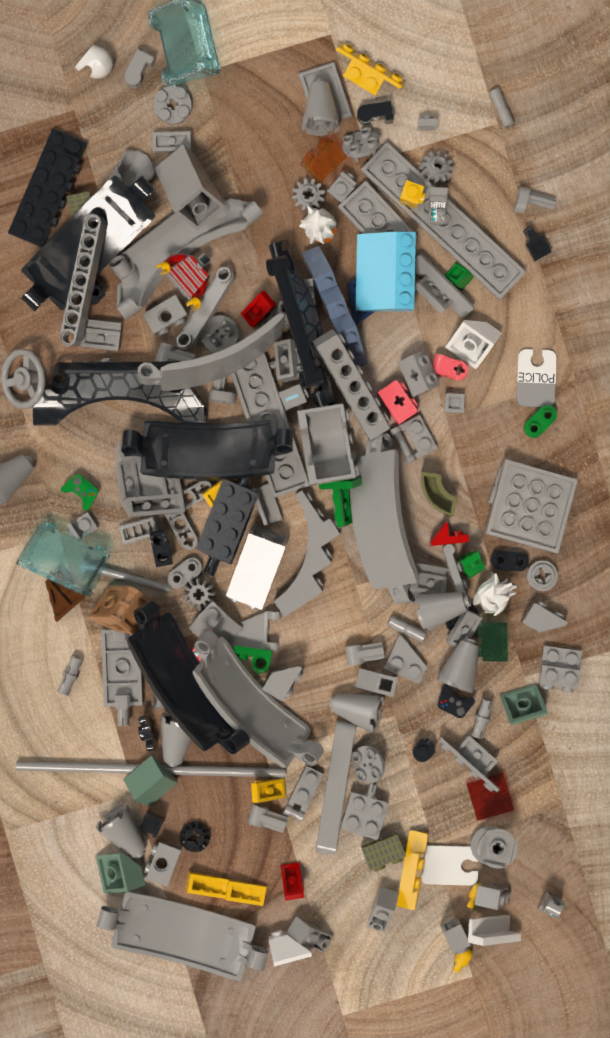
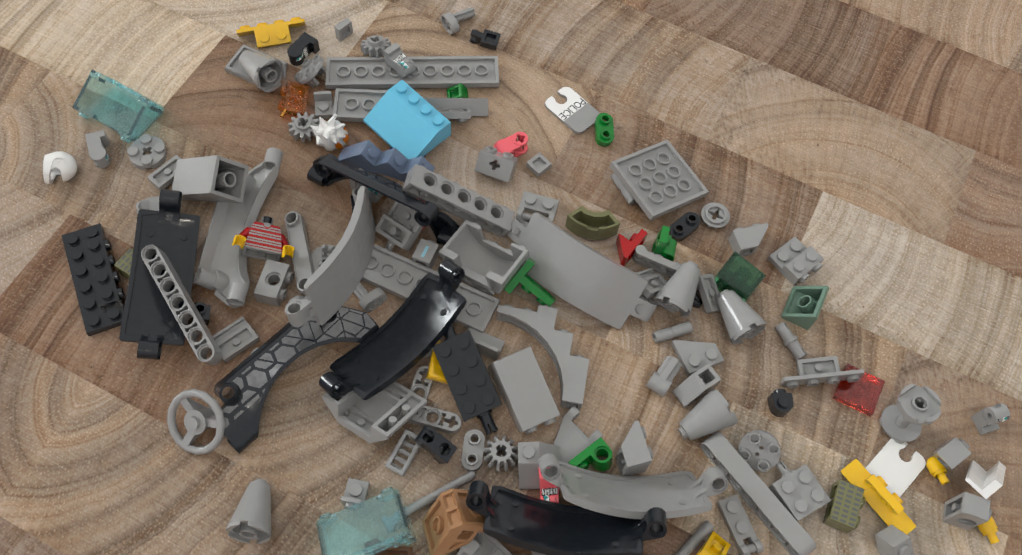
camera: 50 degrees left, 25 degrees down
(83, 489) = (327, 463): green piece -> none
(258, 309) = (339, 218): red slope -> none
(388, 398) = (503, 193): coral brick -> none
(412, 194) = (376, 66): yellow brick -> none
(452, 704) = (762, 350): black piece -> none
(473, 341) = (509, 118): white slope -> none
(494, 595) = (703, 250): white hair -> none

